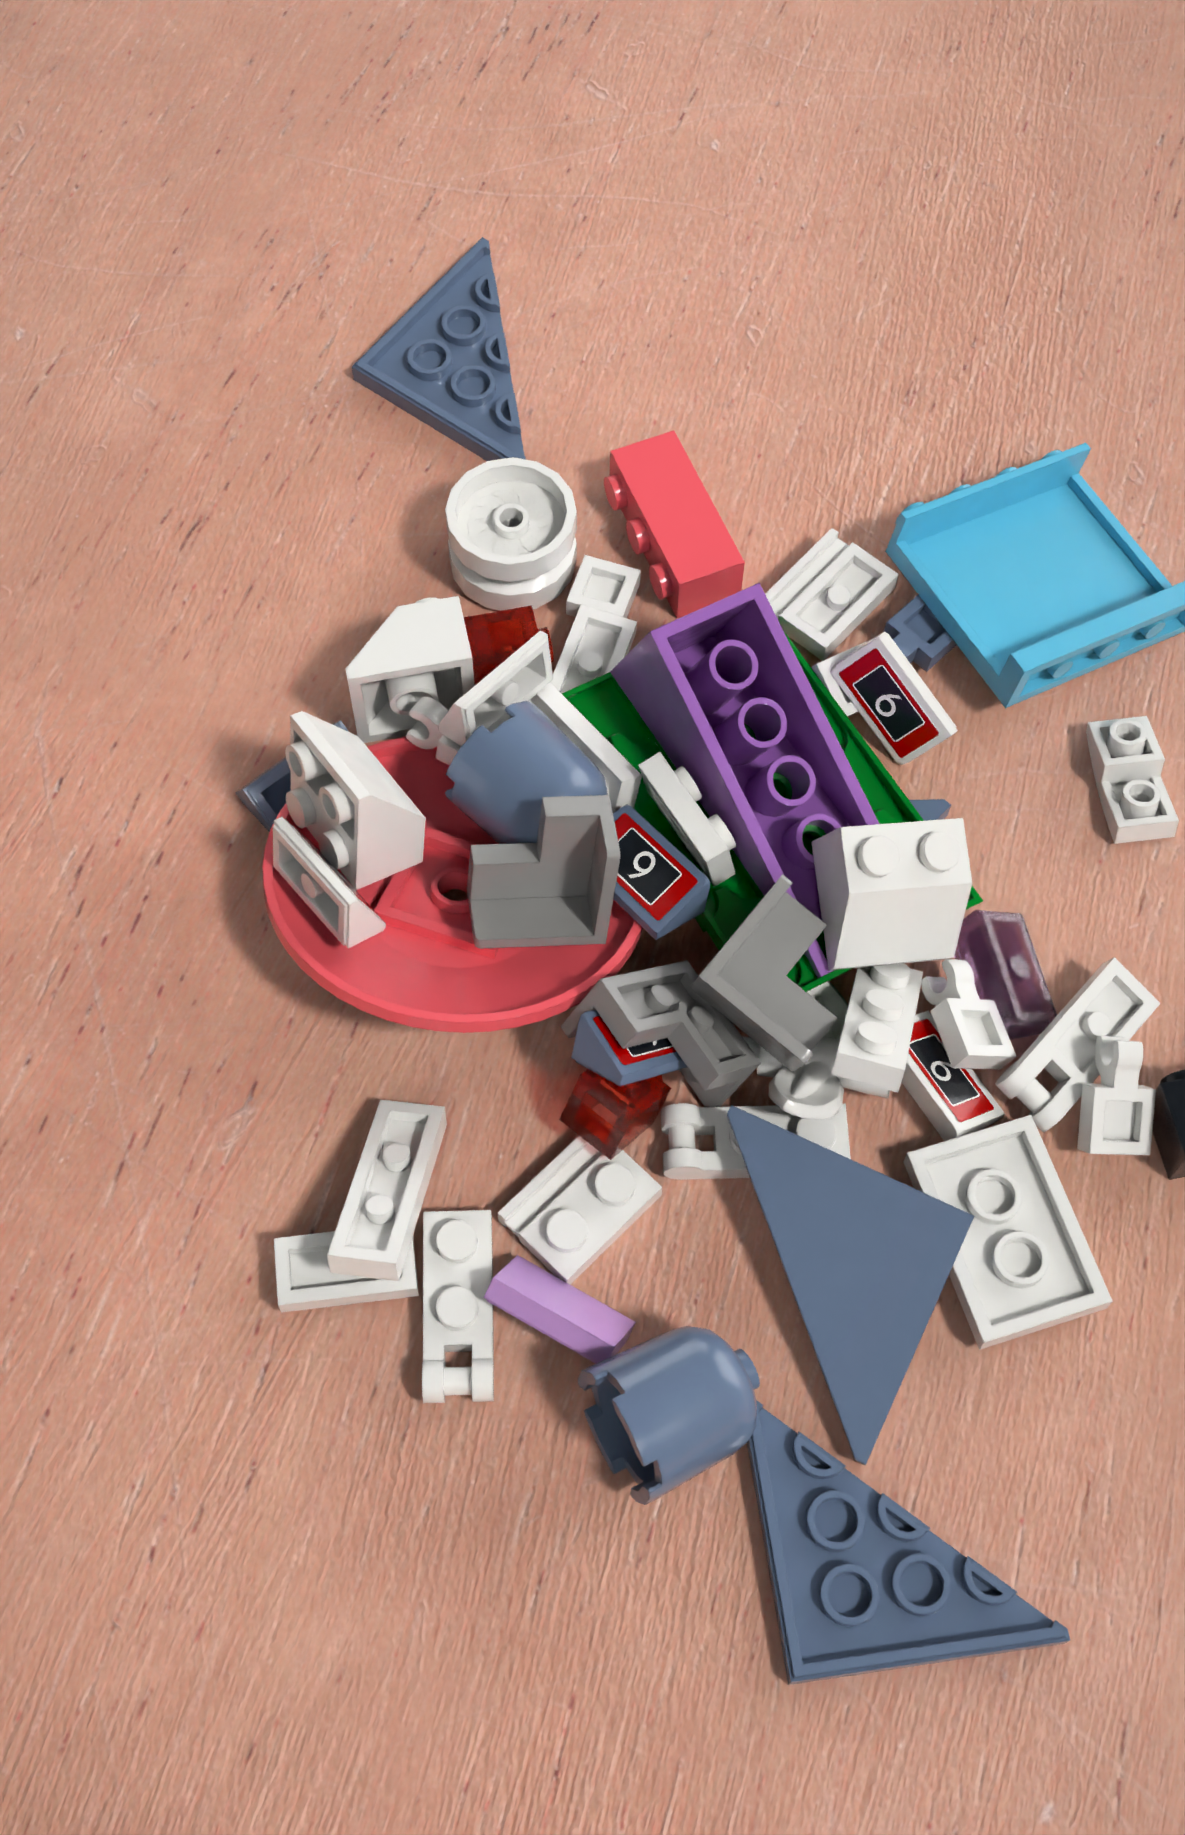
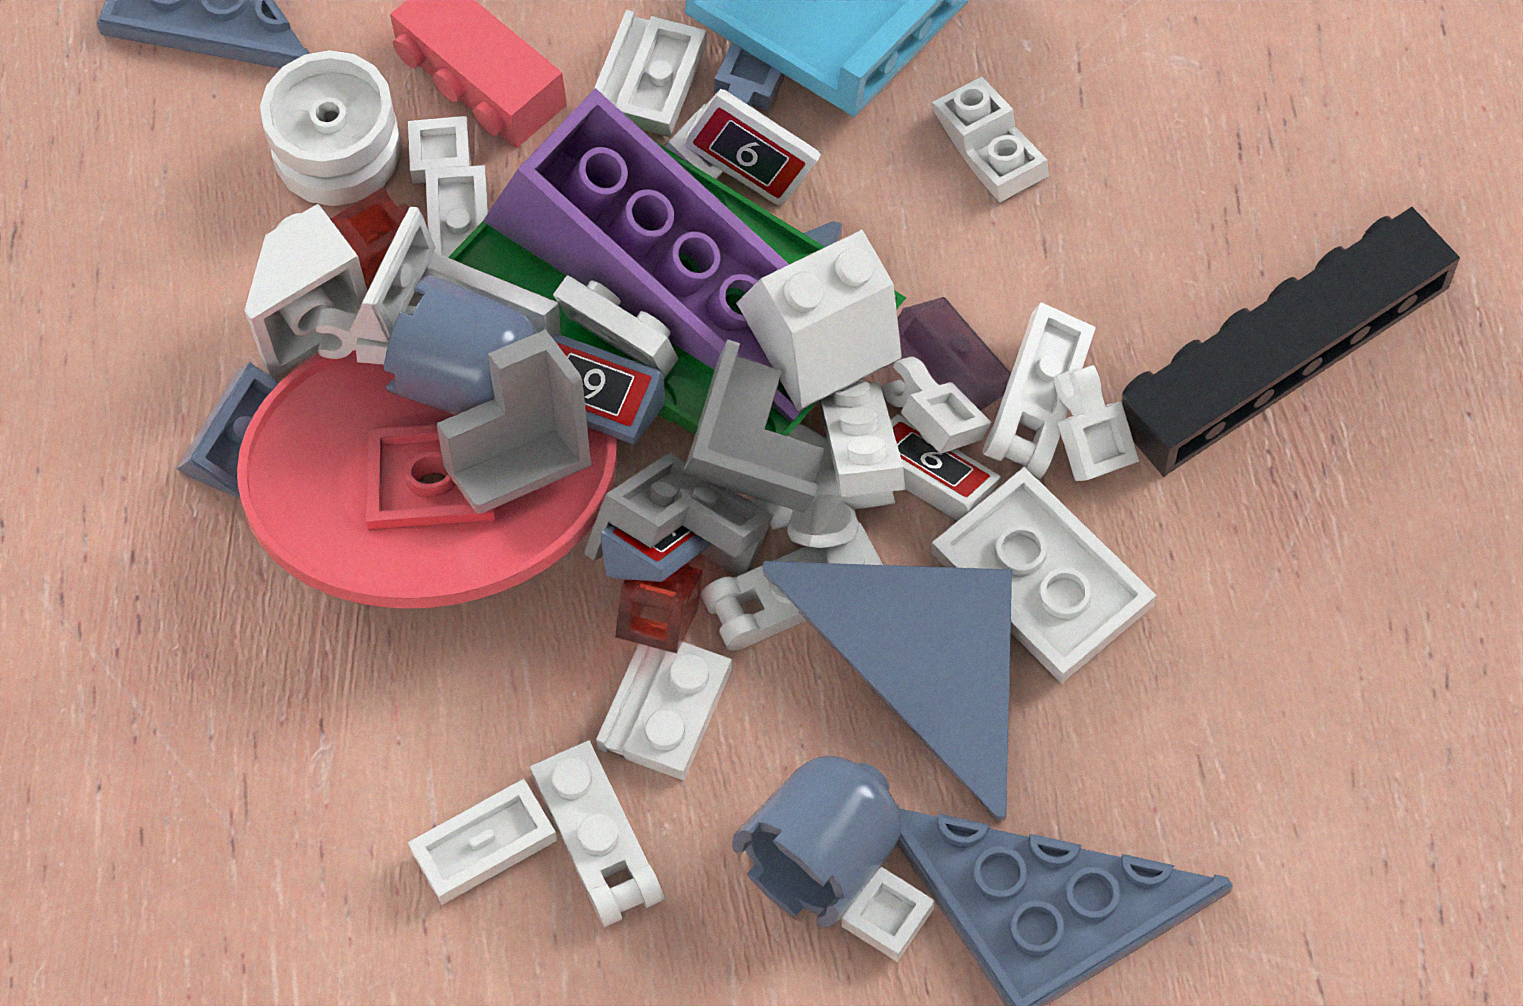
camera: 20 degrees left, 0 degrees up
(323, 886) = (315, 514): white slope -> none
(350, 803) = (307, 431): white slope -> none
(387, 1190) = (492, 757): white plate -> none
(559, 1310) = (688, 799): lavender tile -> none
(705, 1514) = (888, 914): none -> white plate

